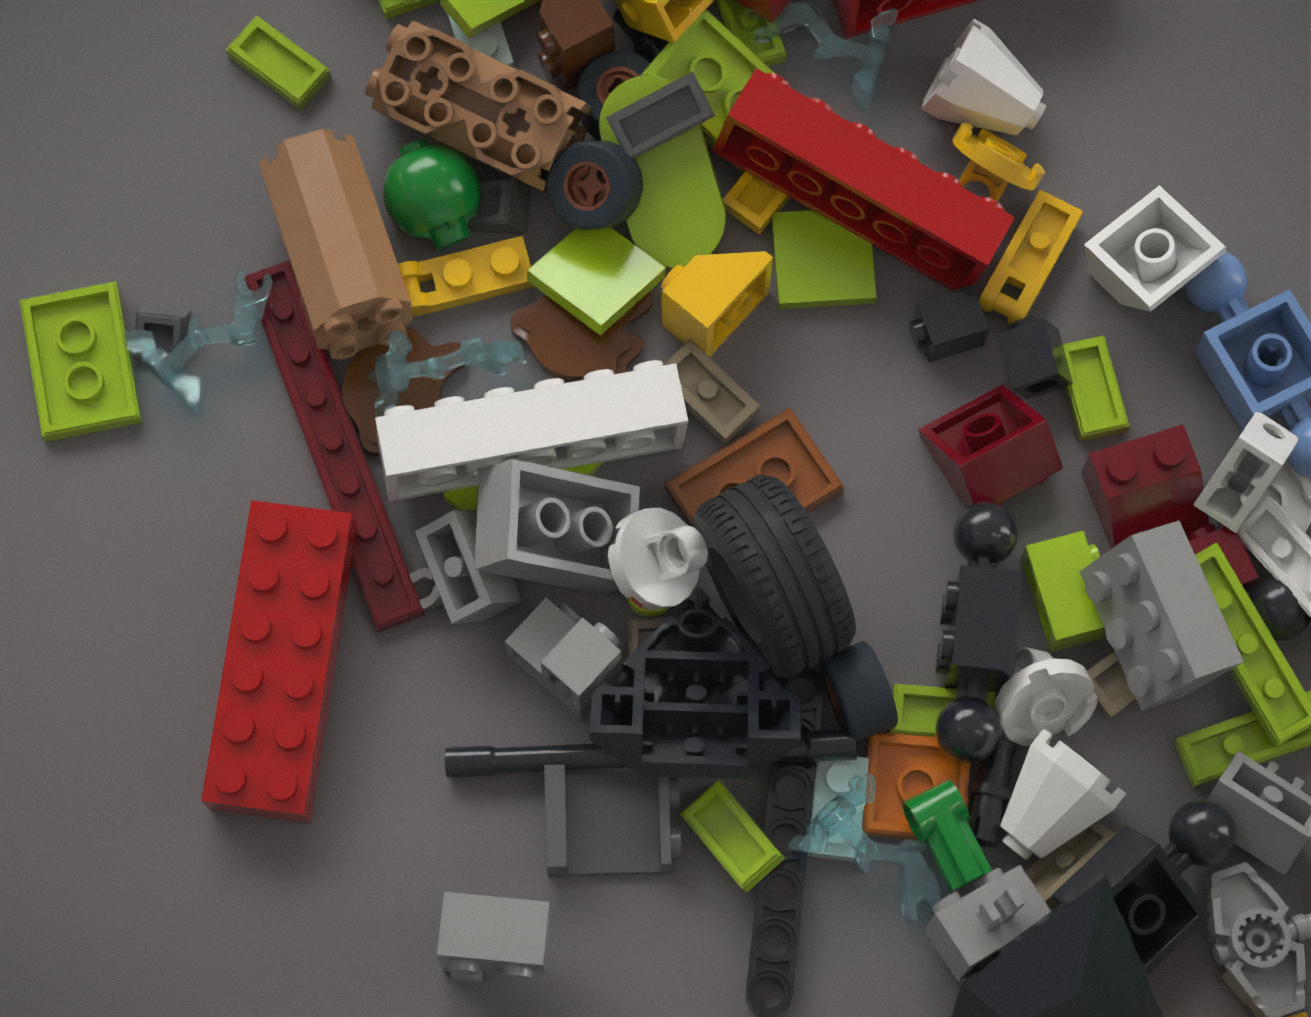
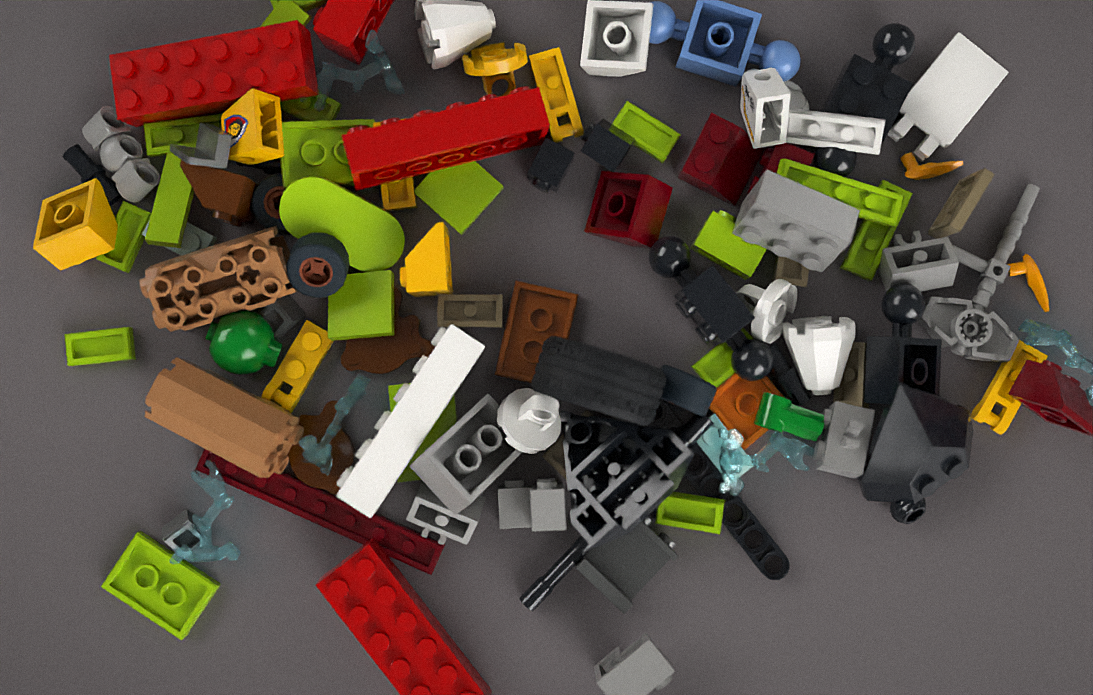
camera: 40 degrees left, 15 degrees up
(661, 116) = (316, 201): dark grey tile -> none

